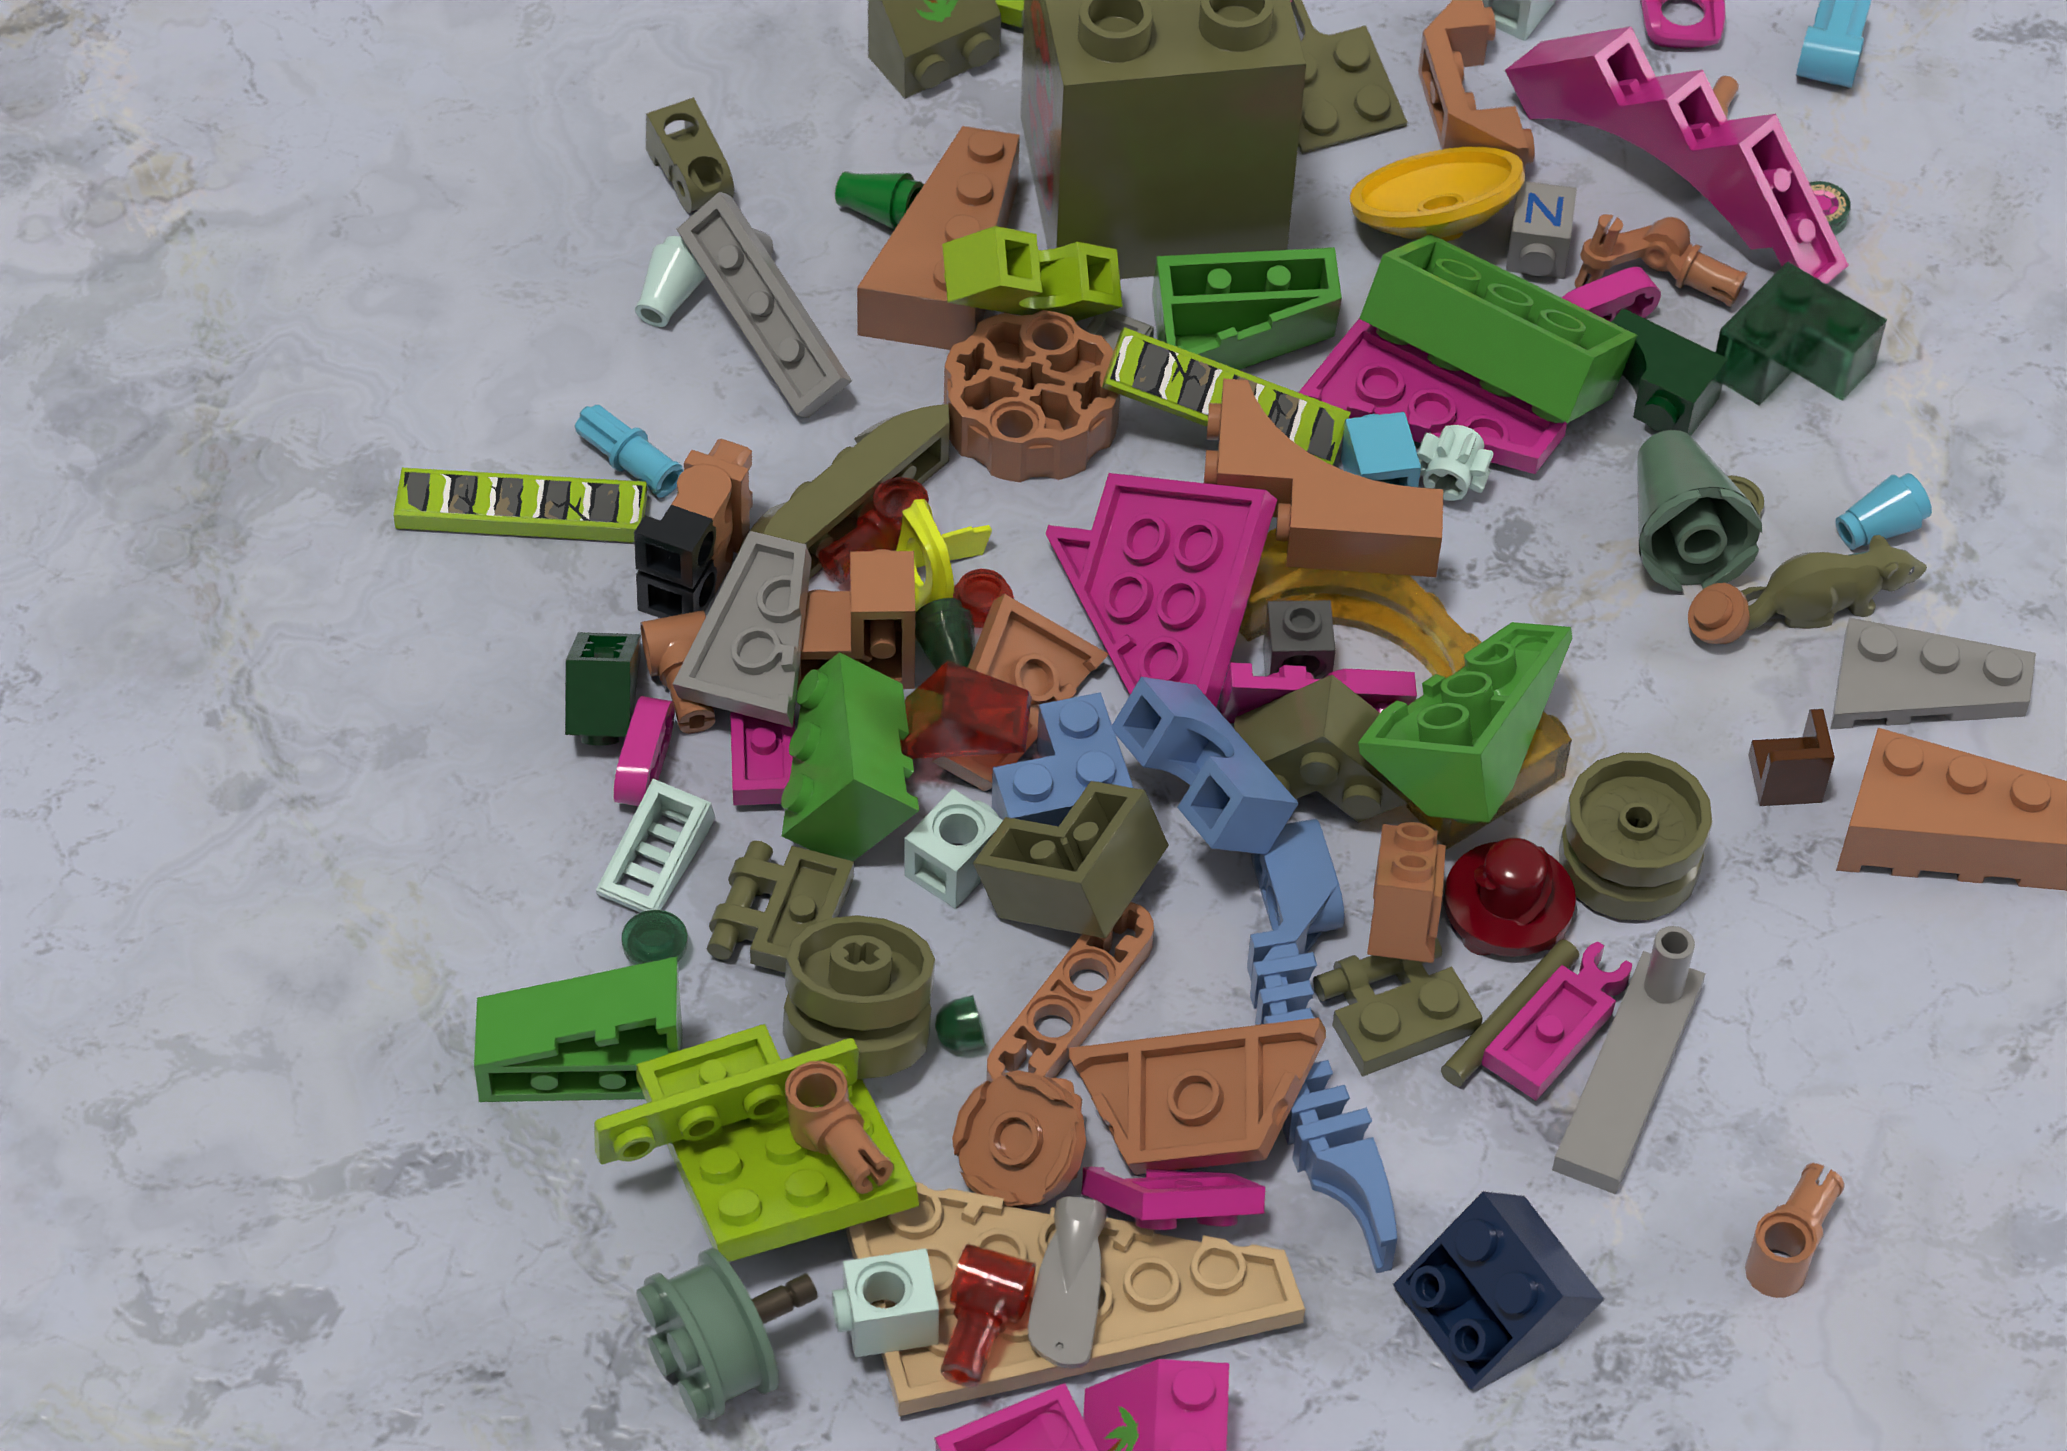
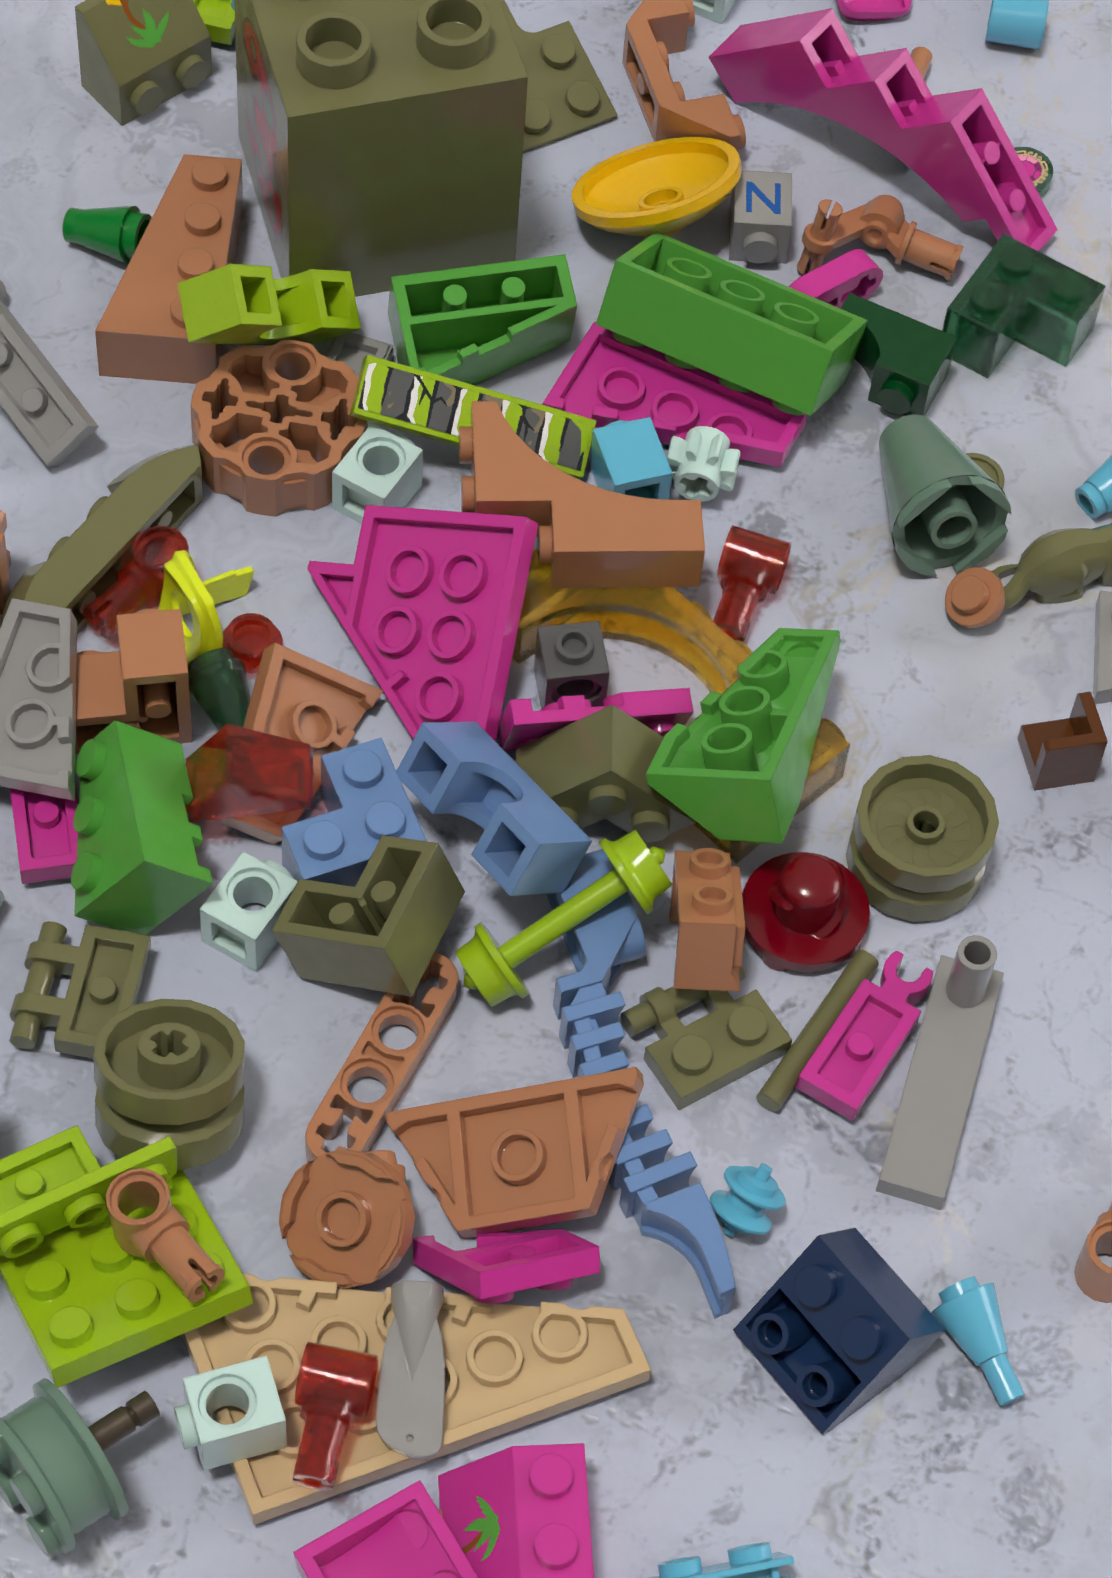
camera: 10 degrees left, 5 degrees up
(960, 1025) = (274, 1098): clear green hinge -> none
(1124, 442) = (377, 472): none -> light aqua brick
(1190, 920) = (493, 966): none -> lime piece
(1421, 1159) = (745, 1203): none -> medium azure wheel
(1489, 569) = (748, 571): none -> clear red pin
(1636, 1298) = (975, 1323): none -> medium azure cone

